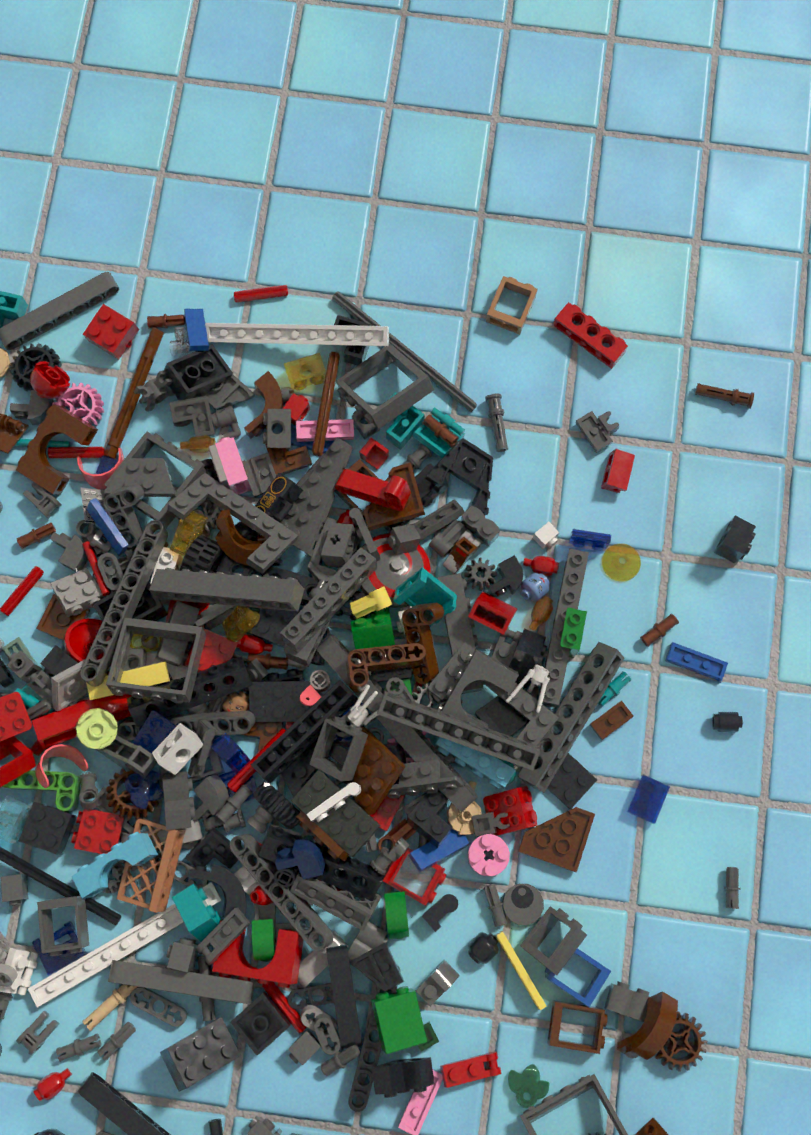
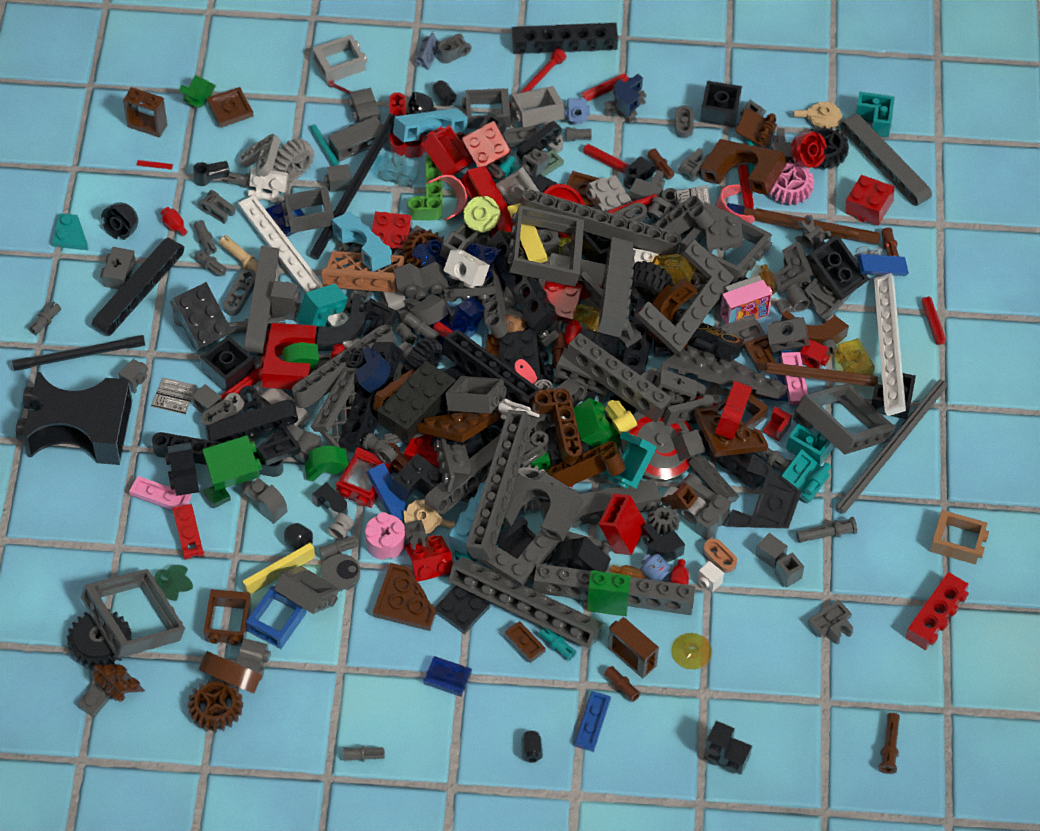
camera: 85 degrees right, 20 degrees down
(44, 558) = (641, 169): none -> black piece
(47, 828) = (391, 194): black brick -> none
(88, 790) = (427, 220): dark grey connector -> none
(107, 526) = (672, 205): blue tile -> none
(223, 935) = (303, 324): dark grey plate -> none
(289, 1084) = (174, 395): none -> light grey sticker
(335, 801) = (425, 386): white plate -> none
(340, 1060) = (195, 427): dark grey axle -> none
(440, 430) = (806, 470): copper pin -> none
(472, 902) = (340, 527): none -> light grey wheel
(519, 475) = (771, 550): none -> dark grey brick
(520, 524) = (721, 556): none -> nougat plate
(538, 676) = (560, 559): white plant -> none
(545, 460) = (789, 569): none -> dark grey brick
(583, 538) = (709, 608): clear blue plate -> none
(618, 471) = (789, 639): red hinge -> none
(628, 615) = (632, 647): none -> reddish brown window

